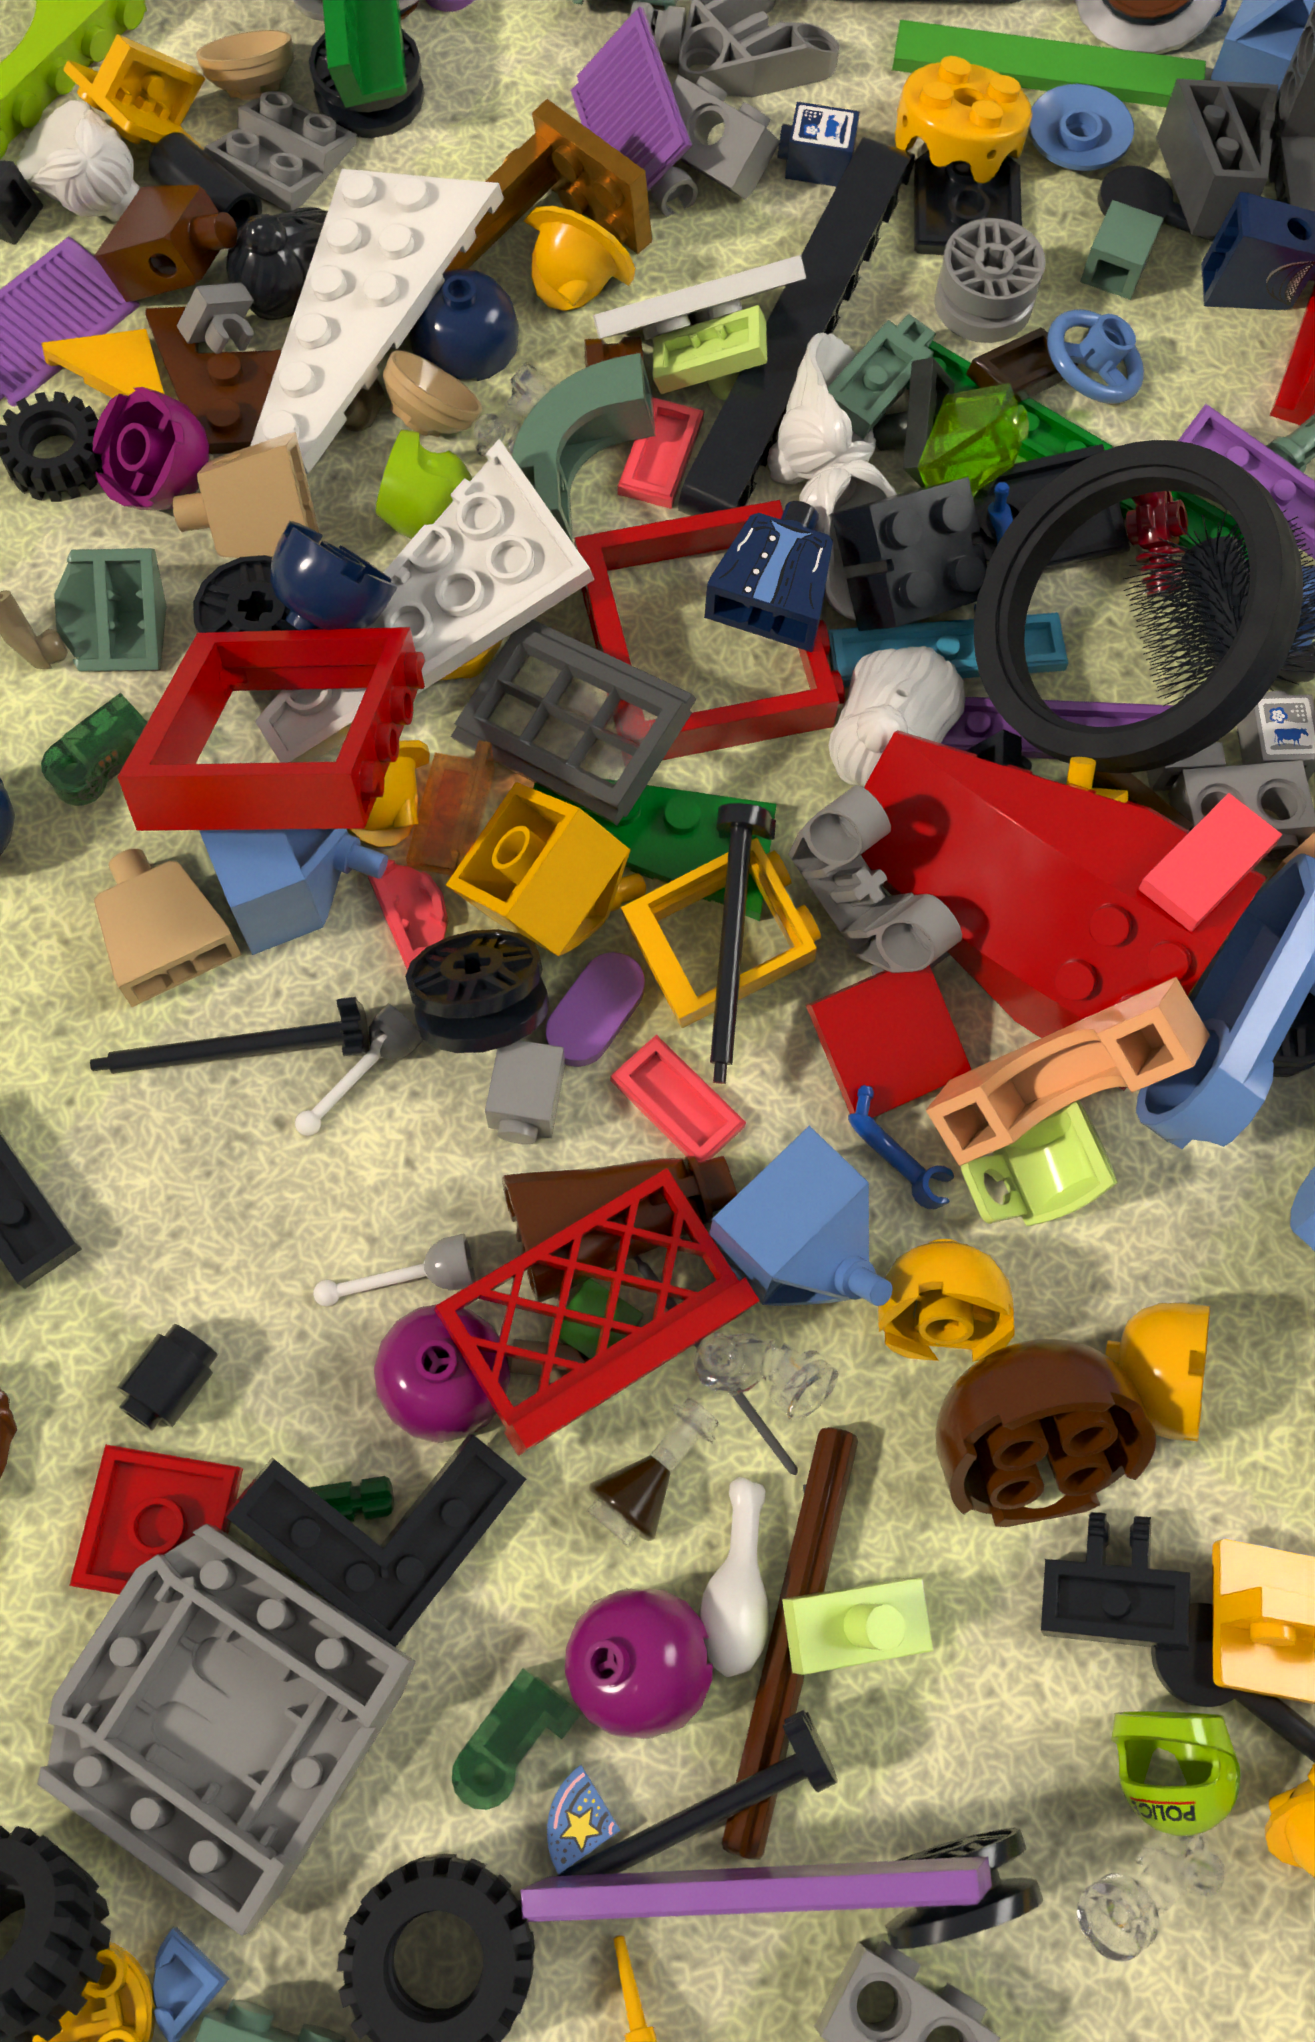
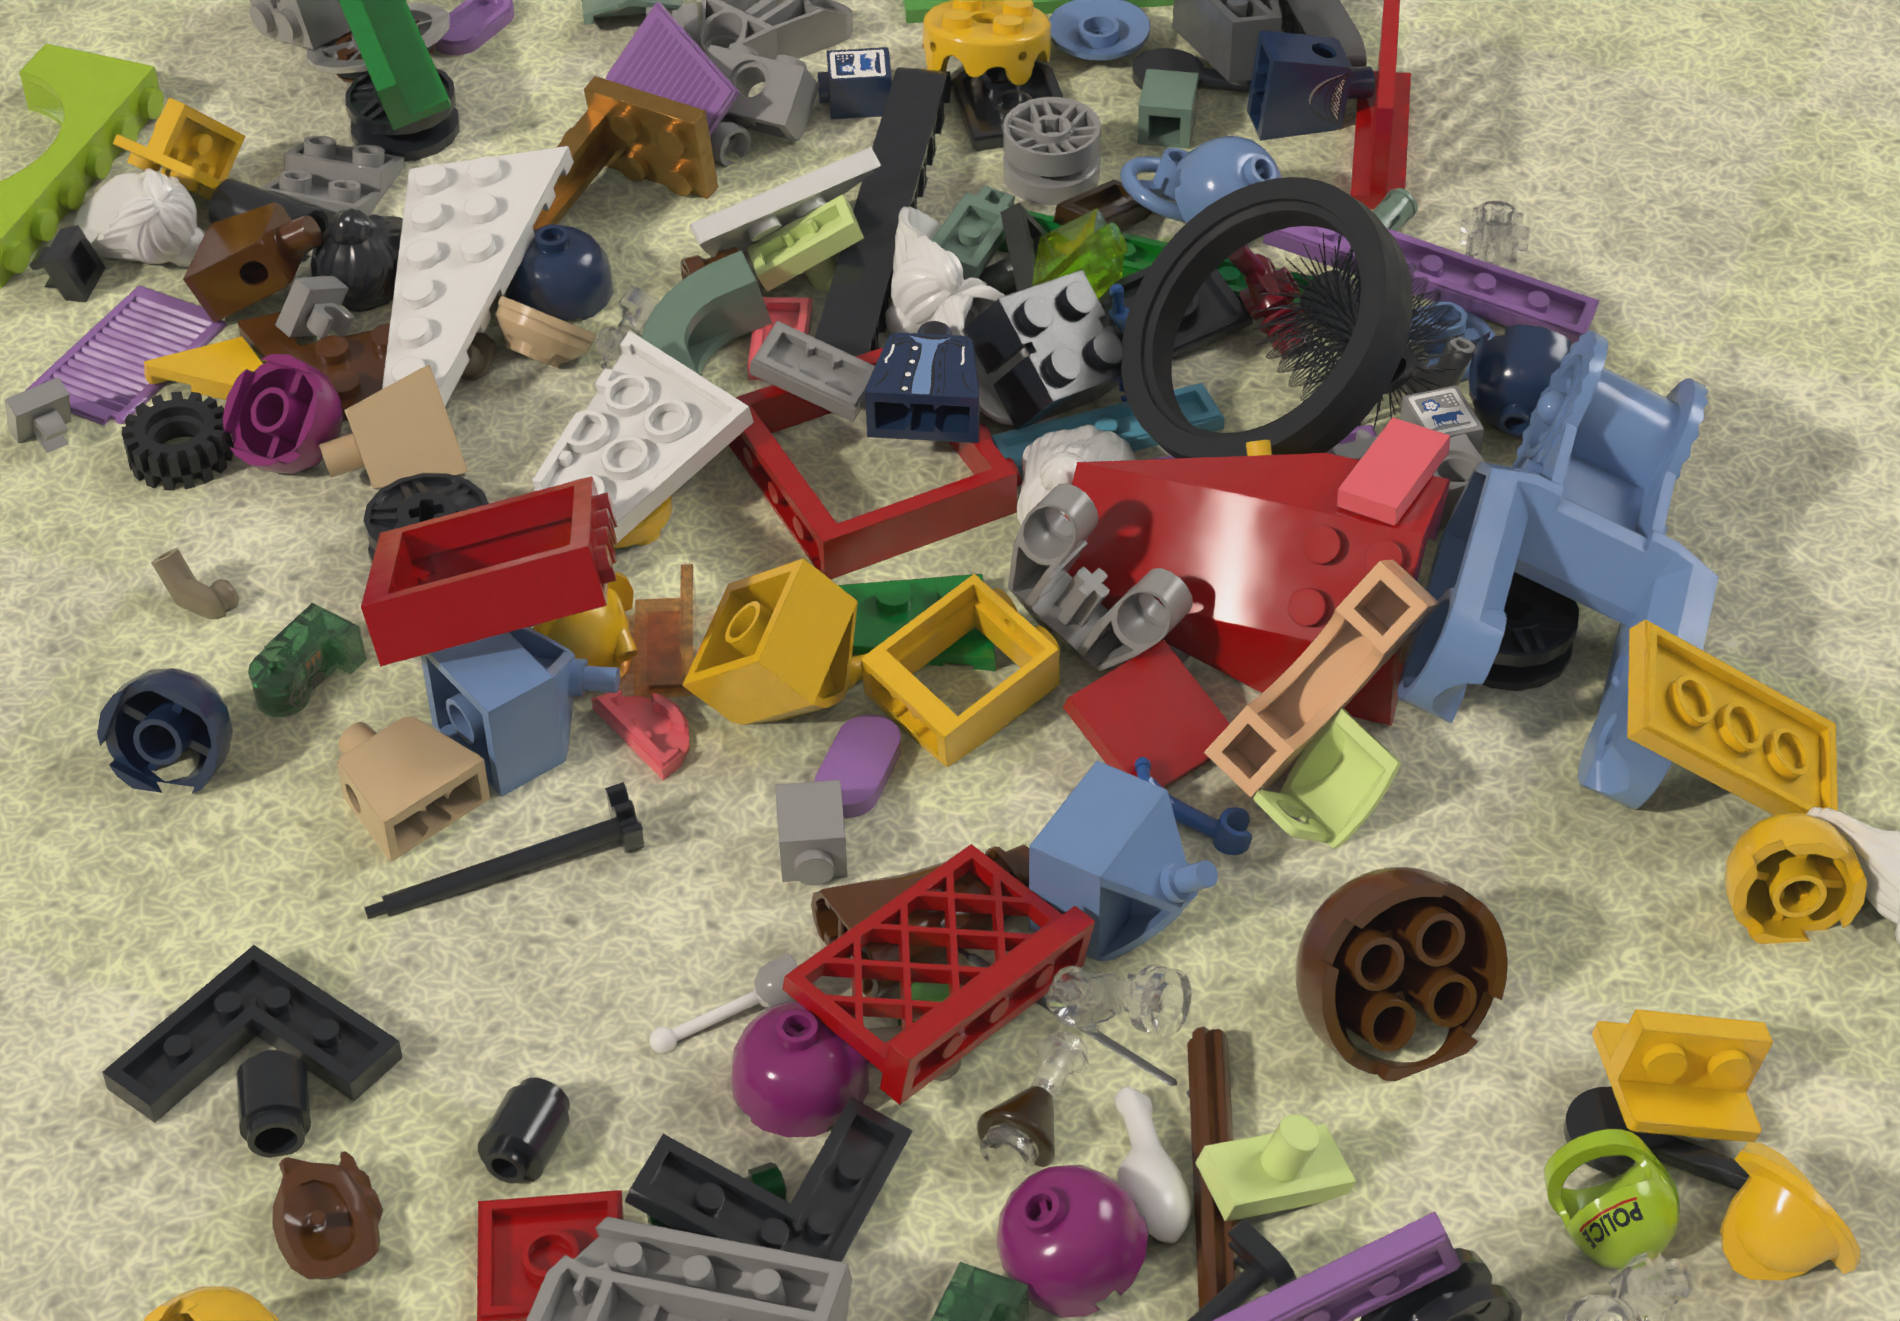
camera: 10 degrees left, 25 degrees down
(112, 609) = (276, 549): sand green slope -> none
(247, 62) = (283, 119): tan piece -> none
(326, 583) = (495, 461): dark blue cylinder -> none
(389, 1038) = (663, 824): hinge -> none
(417, 484) = (553, 393): lime helmet -> none
(478, 991) = (741, 755): black wheel -> none
(574, 258) = (651, 200): yellow helmet -> none
(574, 719) = (762, 521): dark grey piece -> none
(670, 528) = (813, 370): none -> light grey plate
(677, 1101) = (959, 816): coral tile -> none
(740, 823) = (956, 561): black piece -> none
(959, 1299) = (1273, 892): yellow cylinder -> none
(1117, 1601) = (1515, 1096): black hinge -> none
(1152, 380) = (1218, 170): none -> medium blue cylinder
(1166, 1361) = (1508, 892): yellow cylinder -> none

